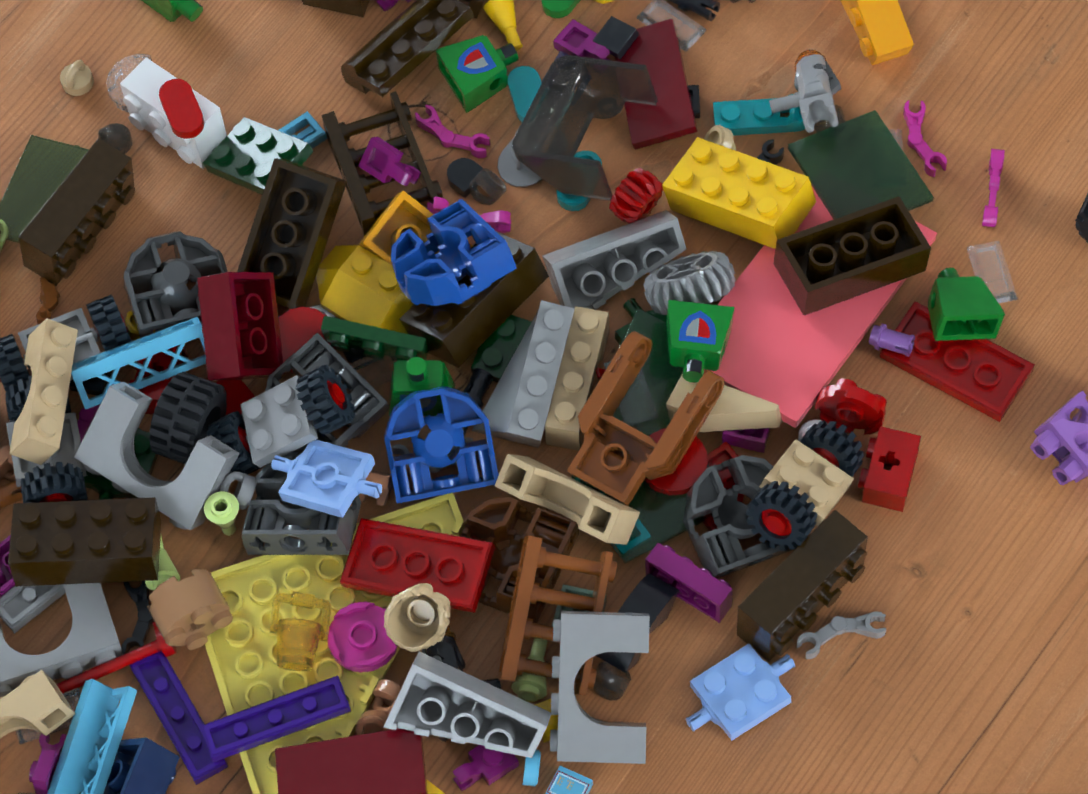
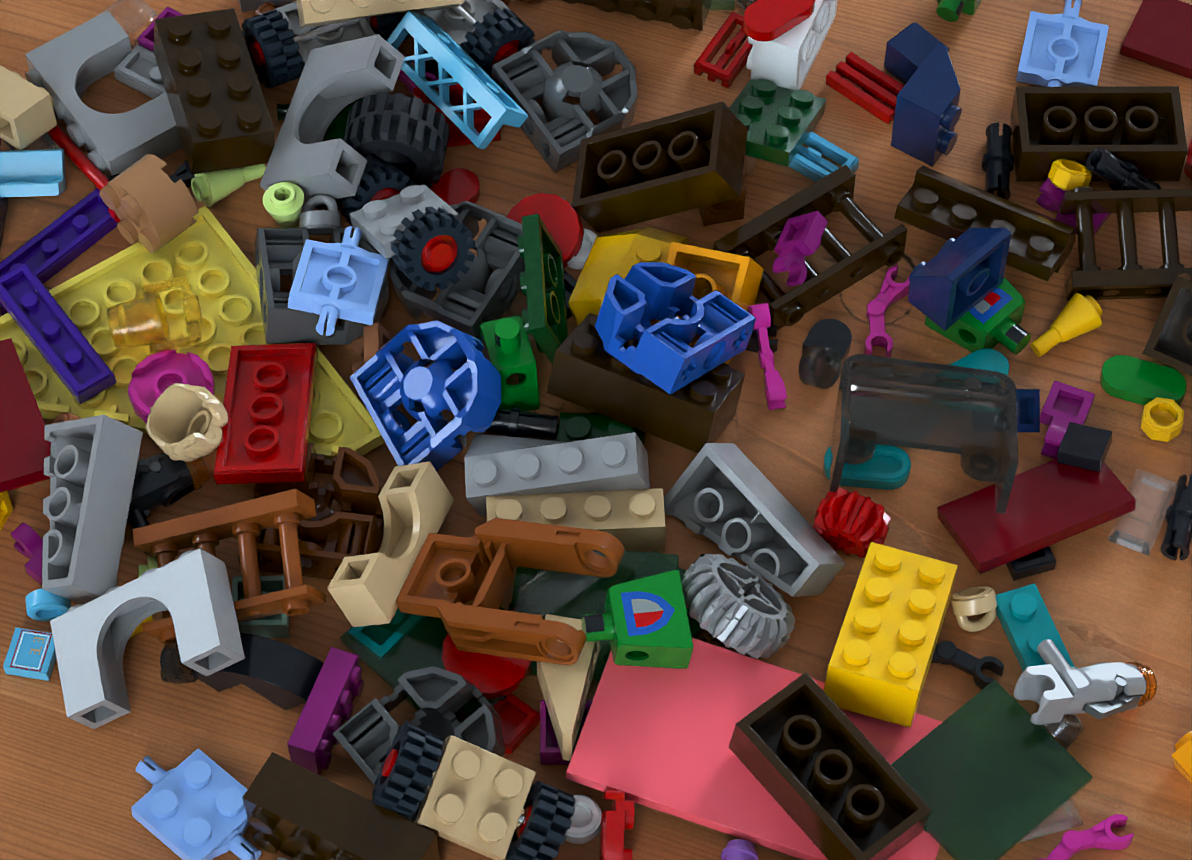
camera: 70 degrees right, 5 degrees down
(180, 188) = (717, 71): none -> red tile
(229, 46) = (908, 51): none -> dark blue panel
(237, 84) = (873, 84): none -> red tile
(240, 325) = (518, 150): dark red brick -> none
(289, 44) = (928, 109): none -> dark blue slope
(343, 22) = (998, 160): none -> black pin
(461, 60) = (960, 275): none -> dark blue slope

